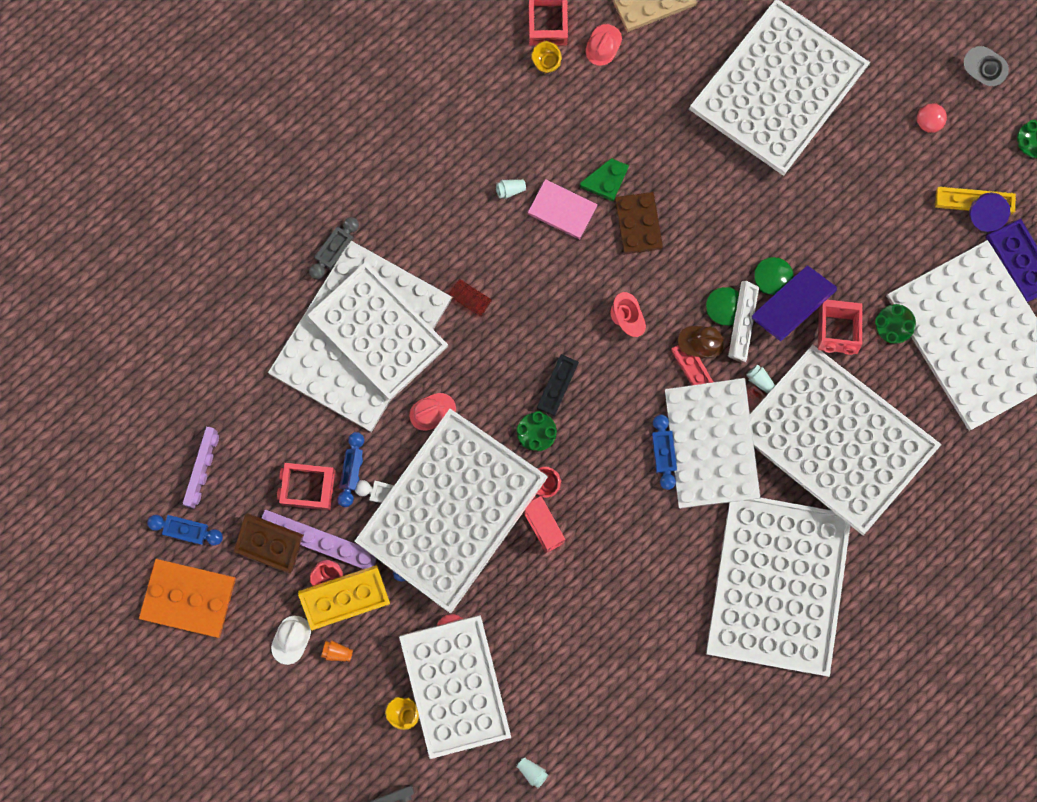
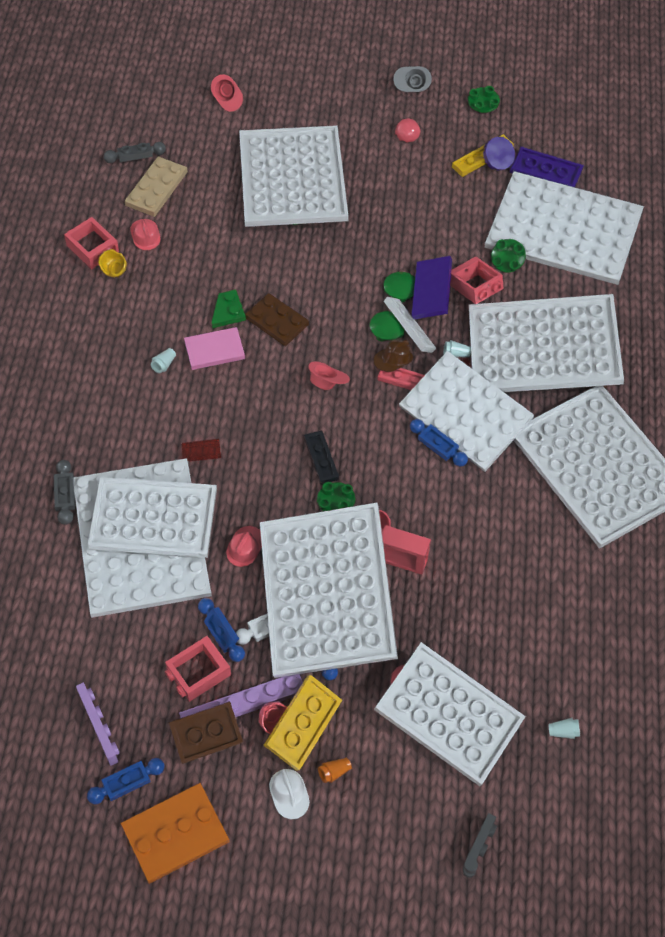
camera: 40 degrees left, 20 degrees down
(402, 713) = (429, 768): yellow hair -> none

